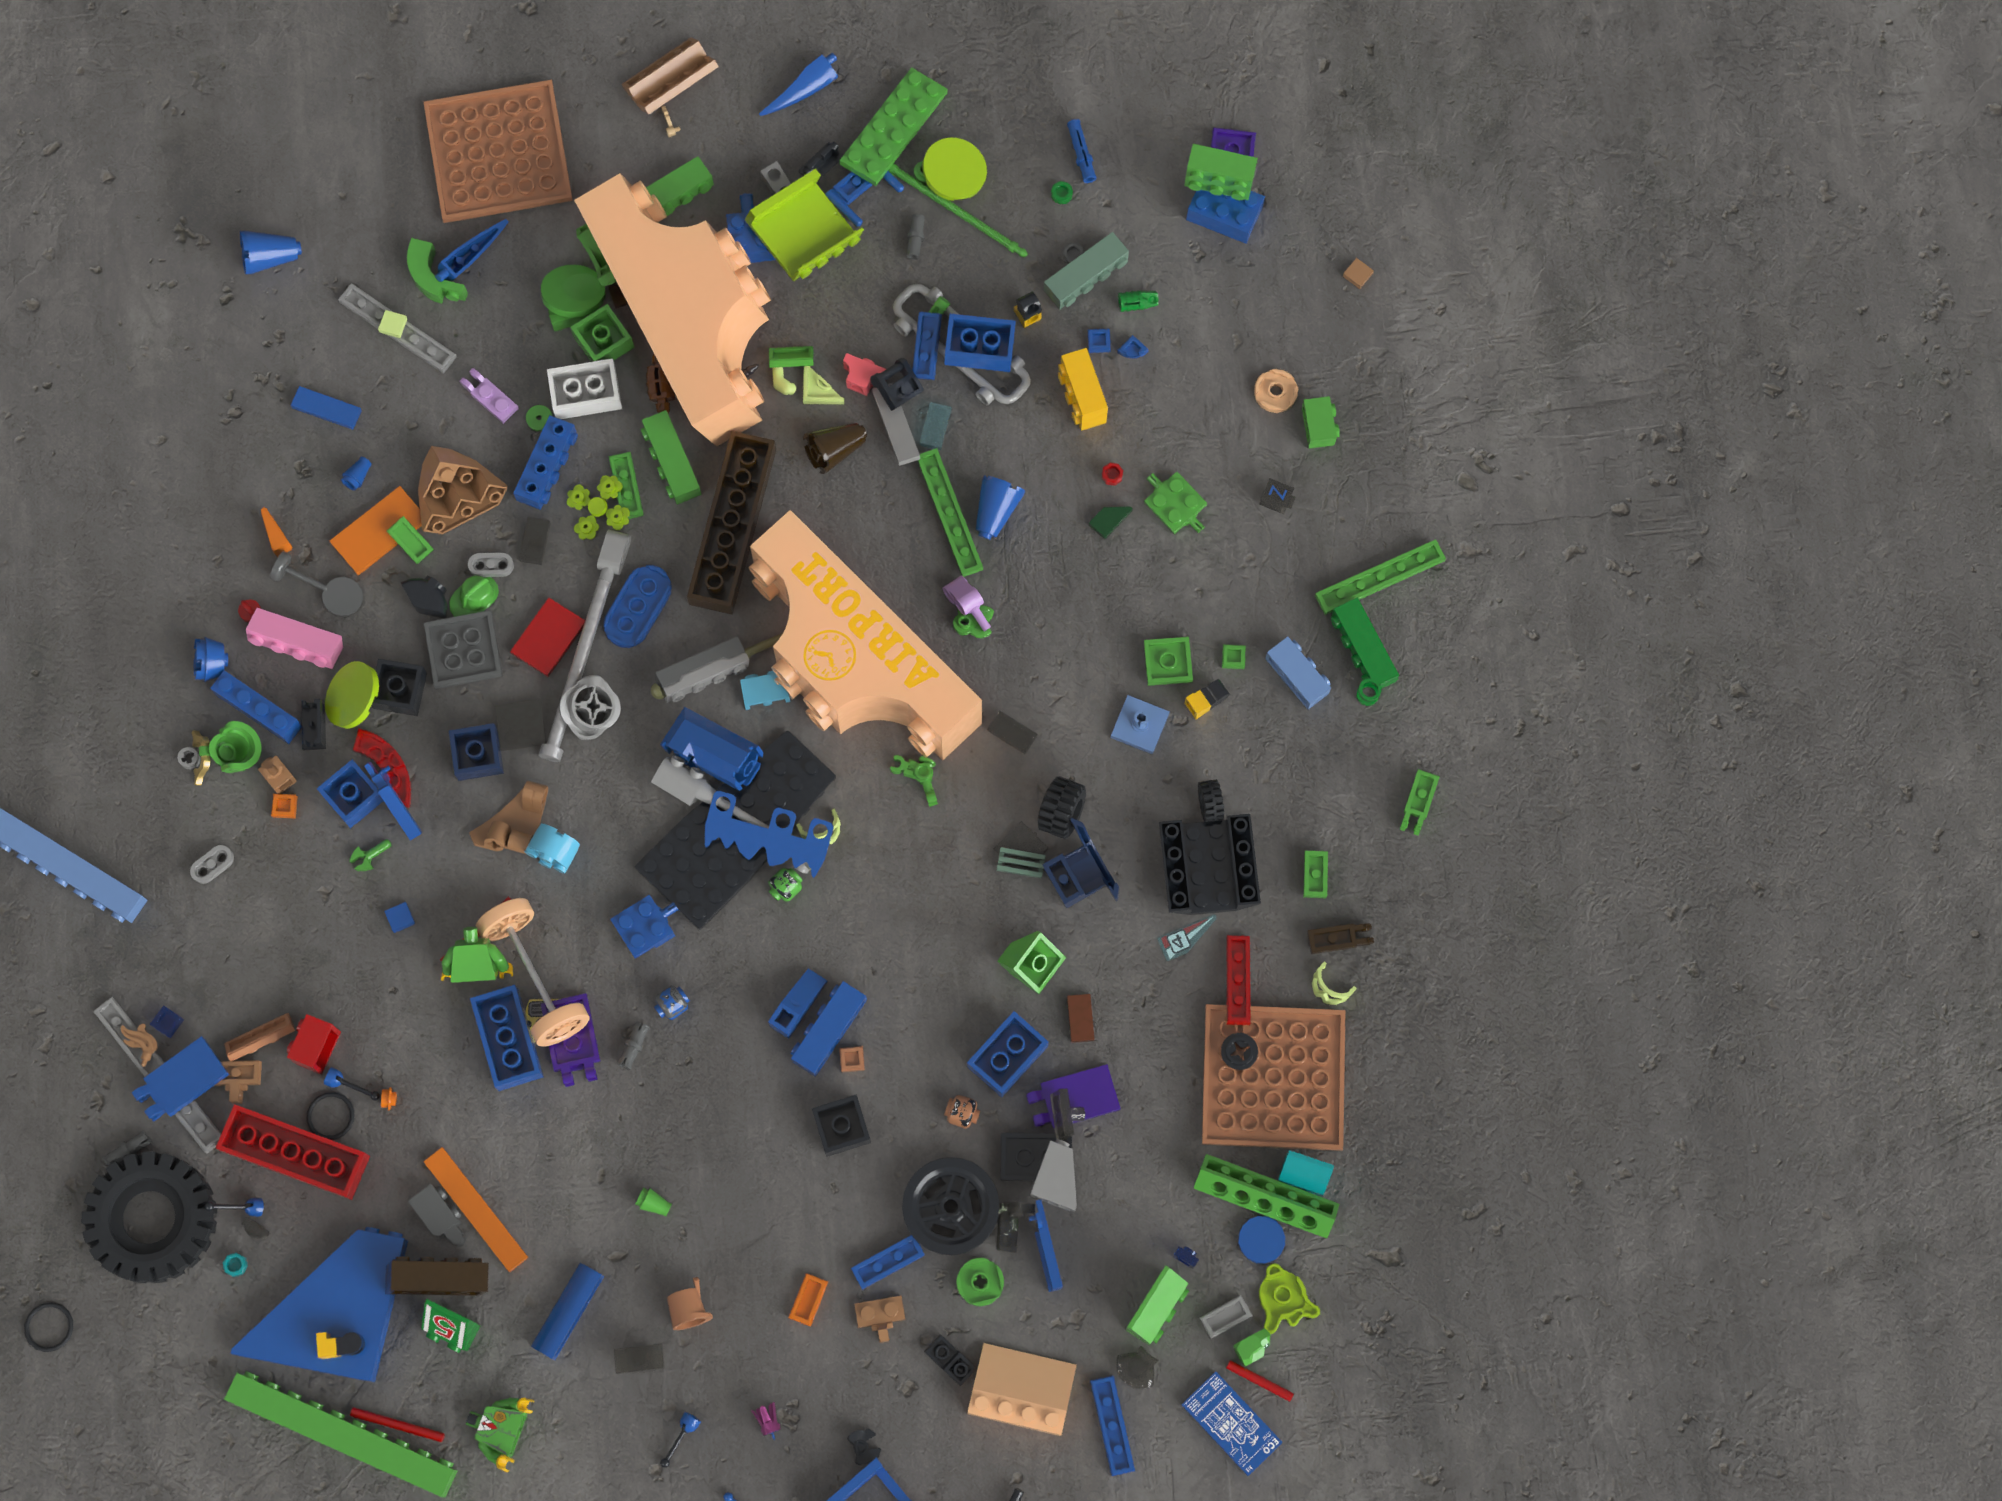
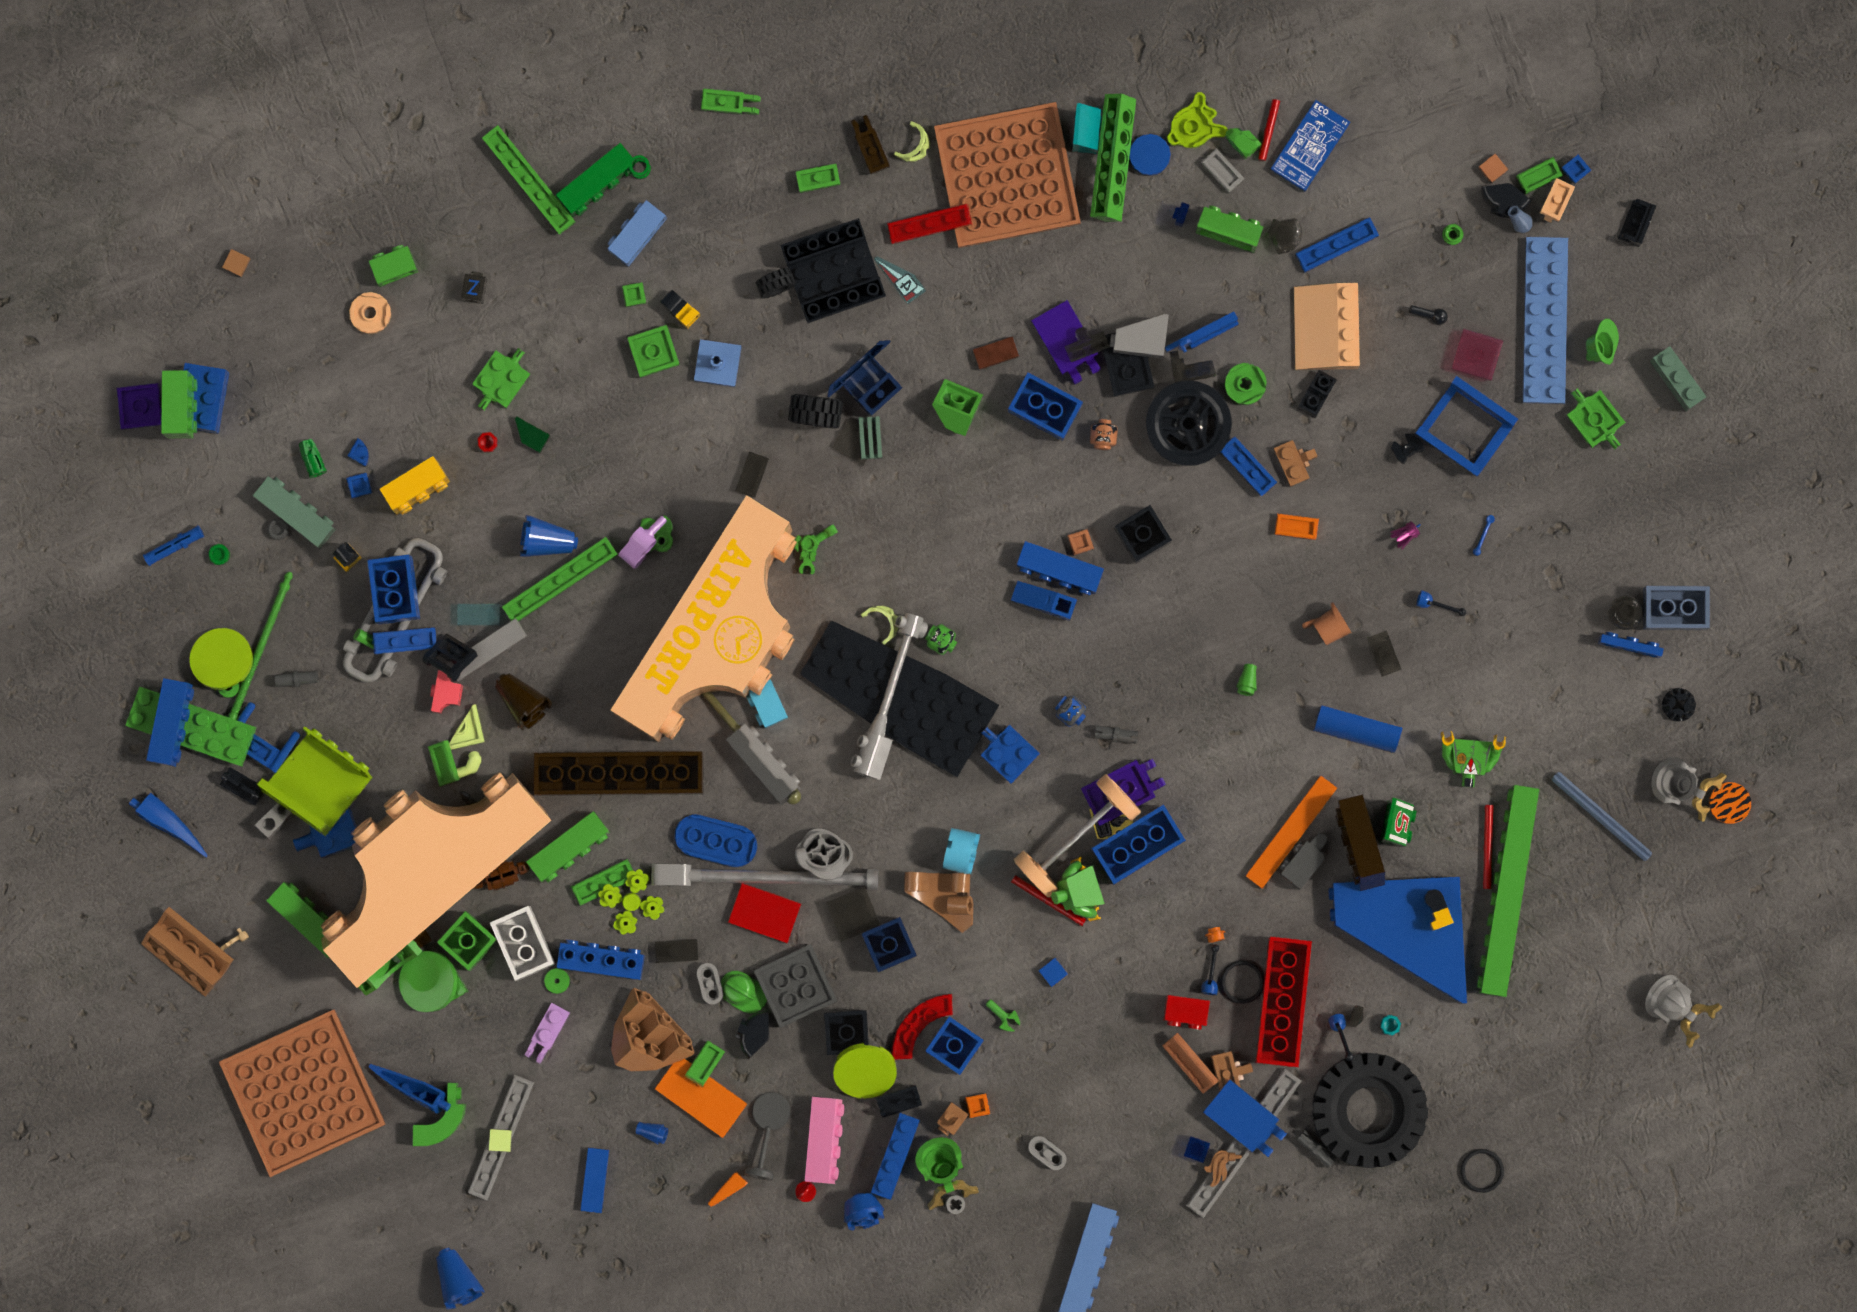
camera: 95 degrees left, 10 degrees up
(393, 801) = (953, 1003): blue piece -> none
(713, 749) = (836, 733): blue brick -> none
(777, 841) = (907, 653): blue piece -> none
(900, 102) = (169, 722): none -> blue brick
(1243, 1041) = (994, 198): black gear -> none

